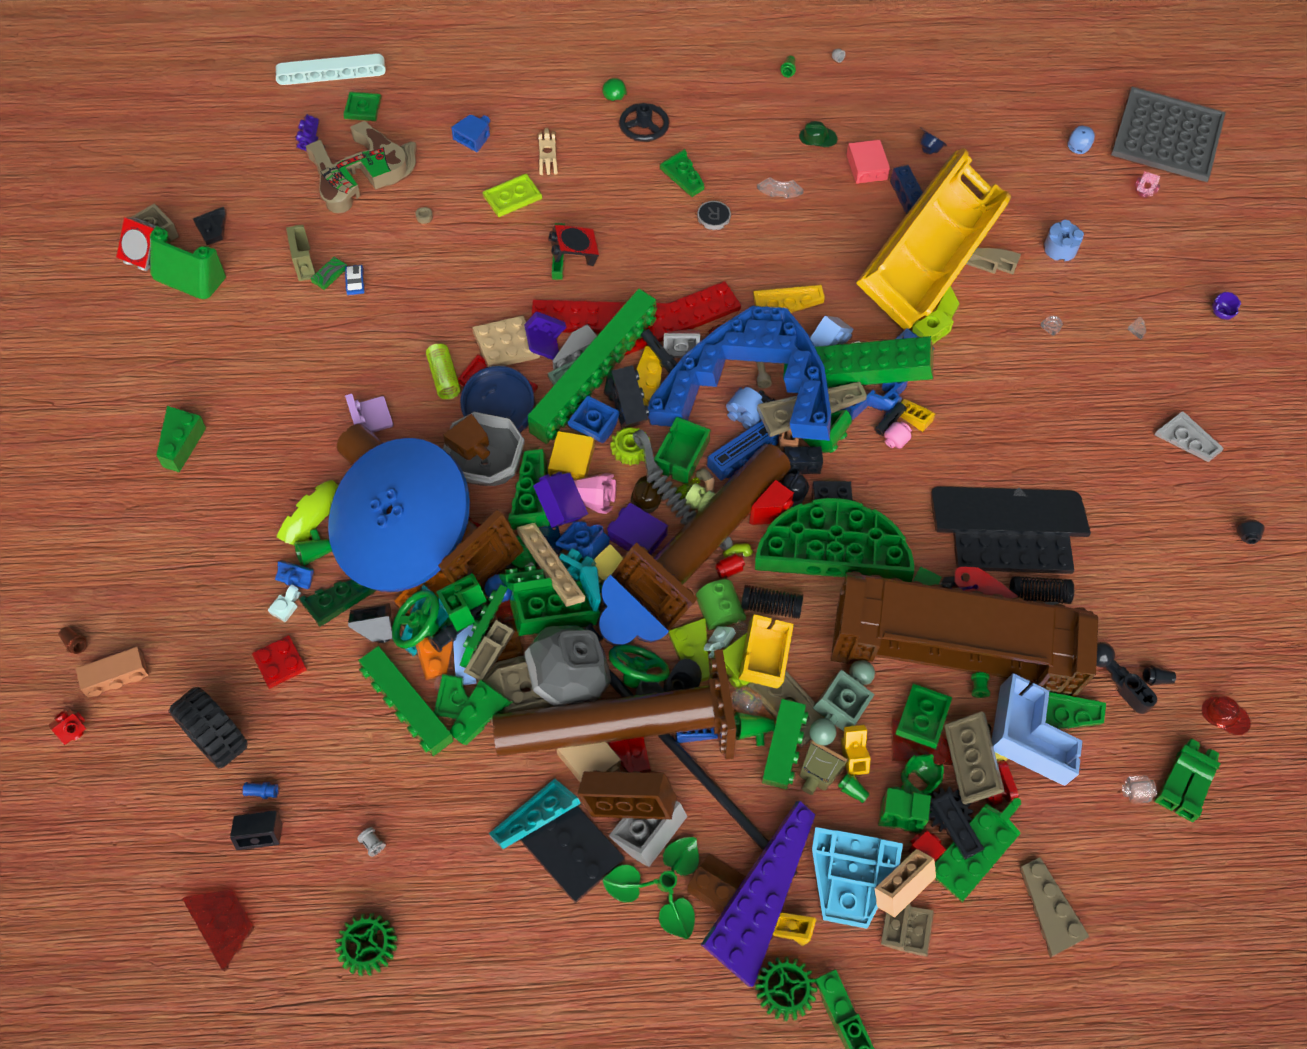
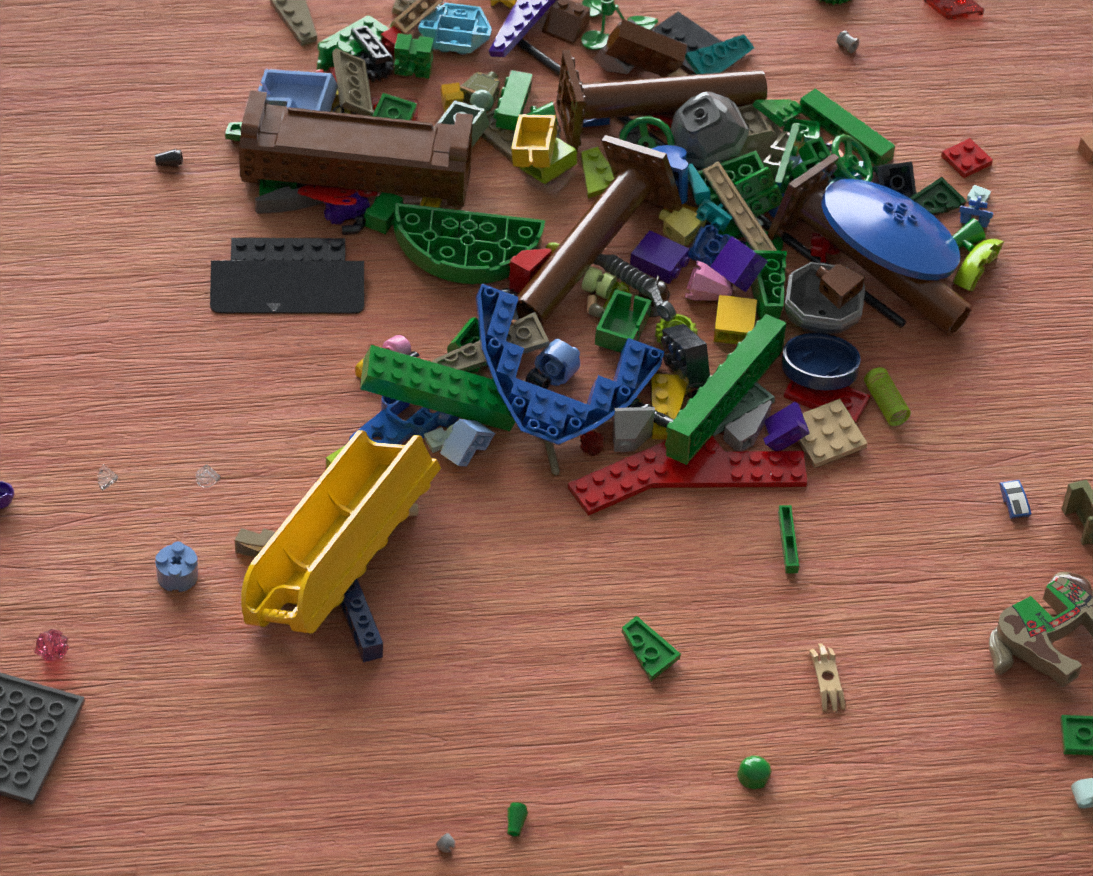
camera: 175 degrees right, 10 degrees down
(208, 727) = (1014, 72): black tyre -> none
(256, 830) = (941, 42): black brick -> none
(261, 790) = (946, 71): blue pin -> none
(328, 273) = (1047, 509): green tile -> none
(370, 413) = (955, 355): lavender bracket -> none
(424, 215) = (959, 585): dark tan tile -> none
(472, 131) = (929, 693): blue torso -> none
(512, 195) = (859, 615): lime tile -> none
(574, 241) = (770, 532): black panel -> none
(594, 419) = (720, 340): blue brick -> none
(643, 120) = (708, 722): black piece -> none
(683, 676) = (610, 129): black piece -> none
(714, 215) = (606, 596): tile -> none
(720, 604) = (570, 201): bright green brick -> none
(720, 638) = (572, 175): light aqua plate -> none
(730, 566) = (562, 231): red brick -> none
(738, 451) = (568, 325): blue brick -> none
(757, 597) = (548, 210): black piece -> none
(785, 189) = (525, 635): clear tile -> none
(790, 298) = (524, 489): yellow wing -> none
(818, 135) = (475, 716): dark green piece -> none
(831, 489) = (463, 291): black brick -> none
(853, 788) = (453, 77): green cone -> none
(868, 161) = (412, 670): coral brick -> none
(926, 769) = (387, 79): green helmet -> none
(930, 143) = (324, 702): dark blue piece -> none
(1065, 592) = (292, 217): black piece -> none
(1081, 139) = (121, 714): medium blue helmet -> none
(1121, 676) = (196, 146): black beam -> none
(1139, 789) = (208, 79): clear head -> none
(1189, 781) = (163, 87): green hips -> none
(1190, 437) = (81, 360): light grey wing -> none
(1226, 715) = (114, 136): clear red piece -> none
(1250, 531) = (45, 271): black cone -> none

